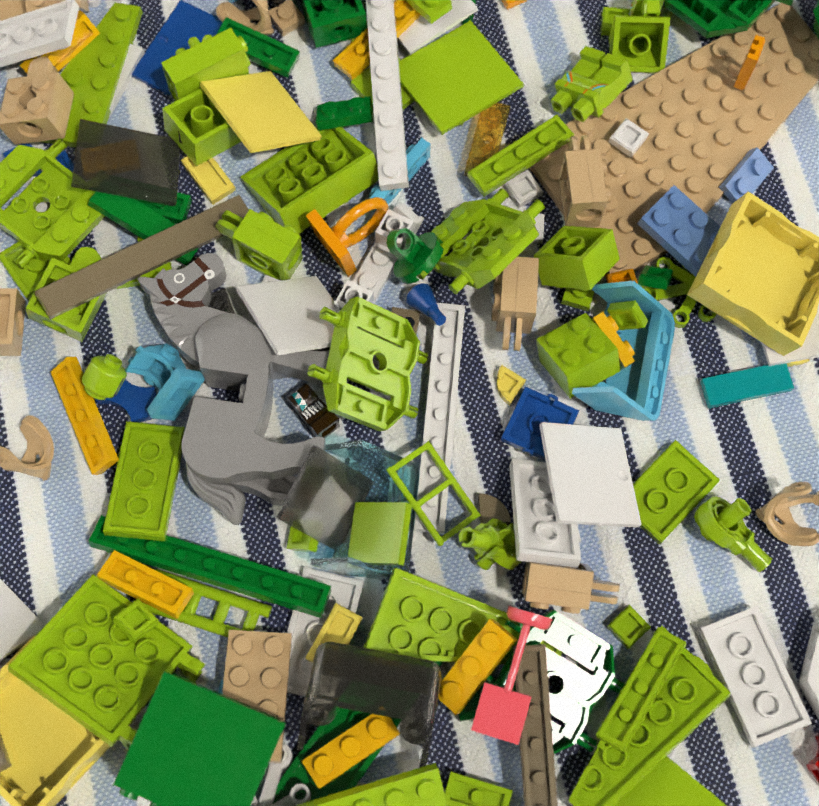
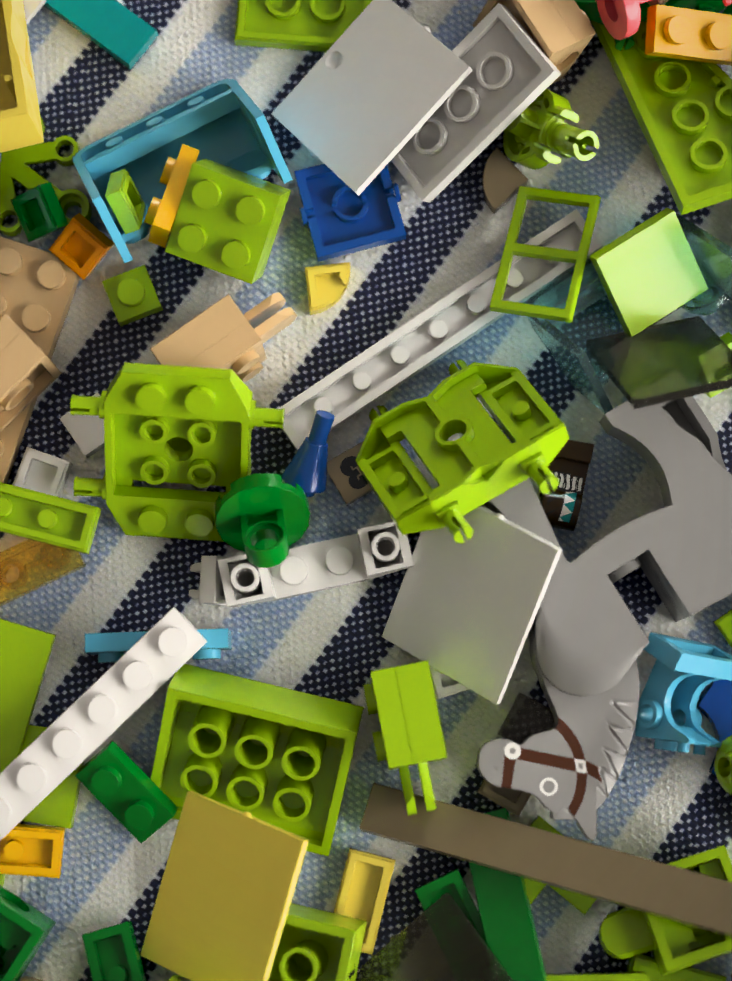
camera: 125 degrees left, 10 degrees up
(337, 241) = (322, 637): light orange tile -> none
(577, 257) = (99, 314): lime brick -> none

